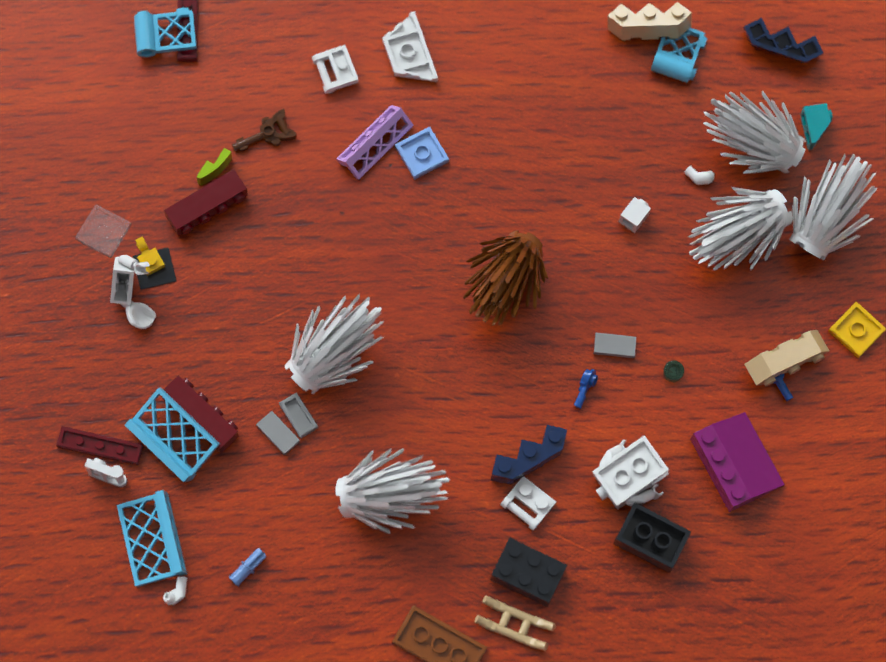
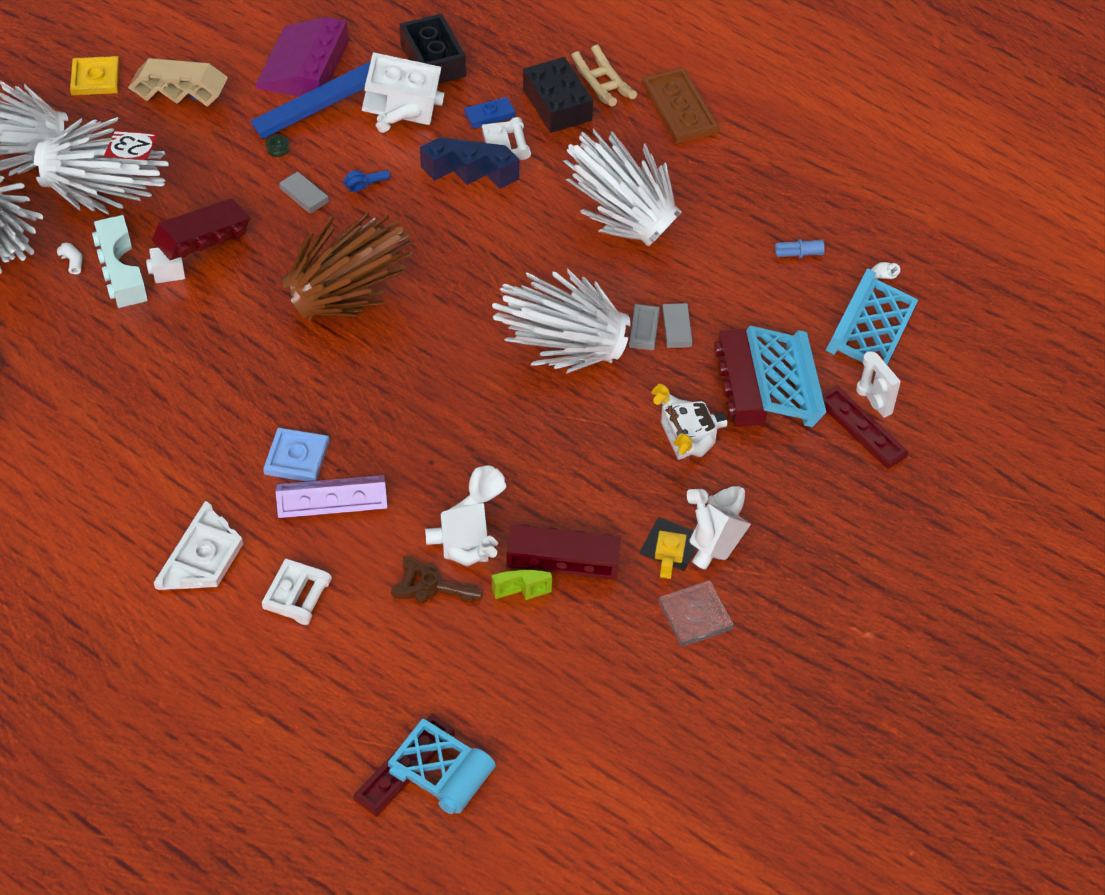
camera: 135 degrees left, 20 degrees down
(204, 351) = (687, 423): none -> torso
(274, 174) = (464, 525): none -> white torso
(563, 521) = (489, 112): none -> blue plate
(631, 243) = (201, 229): none -> dark red brick
(645, 180) = (125, 280): none -> light aqua arch
(684, 422) = (311, 102): none -> blue tile
(716, 232) = (130, 145): none -> sticker

